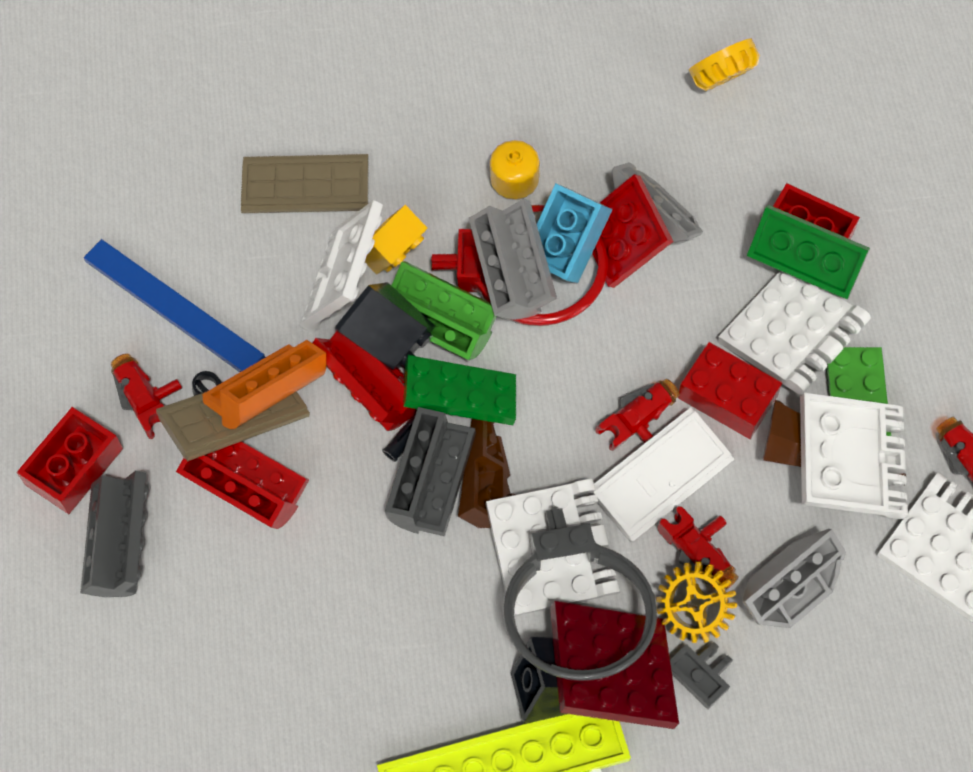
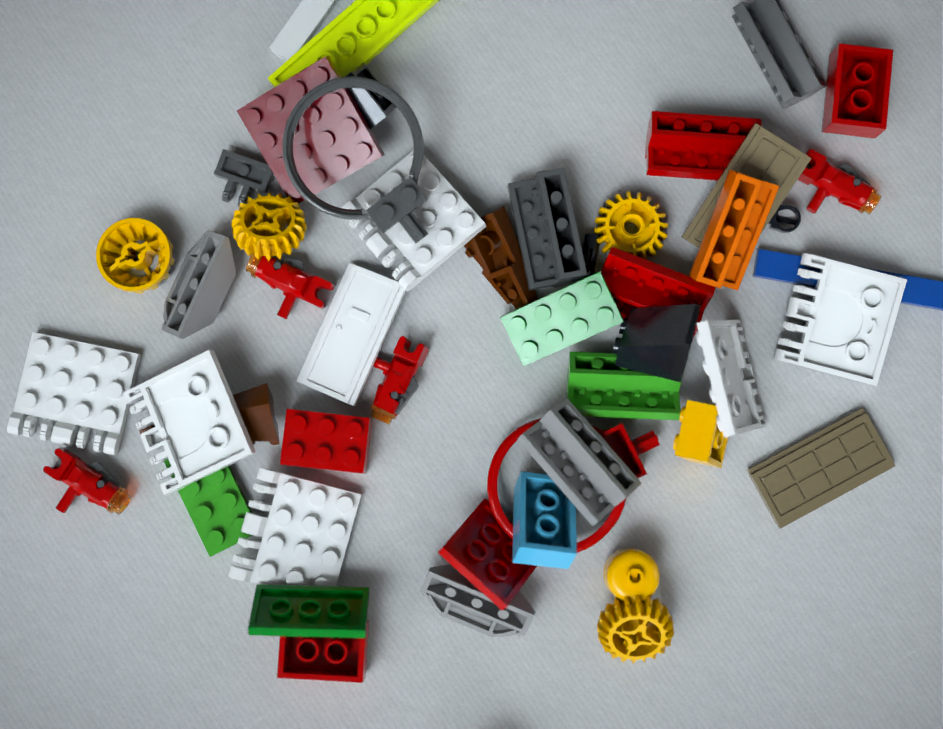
camera: 155 degrees right, 20 degrees up
(212, 276) = (846, 320): none -> white hinge
(350, 460) = (635, 212): none -> yellow gear
(535, 126) = (628, 631): none -> yellow gear
(856, 627) = (117, 254): none -> yellow gear

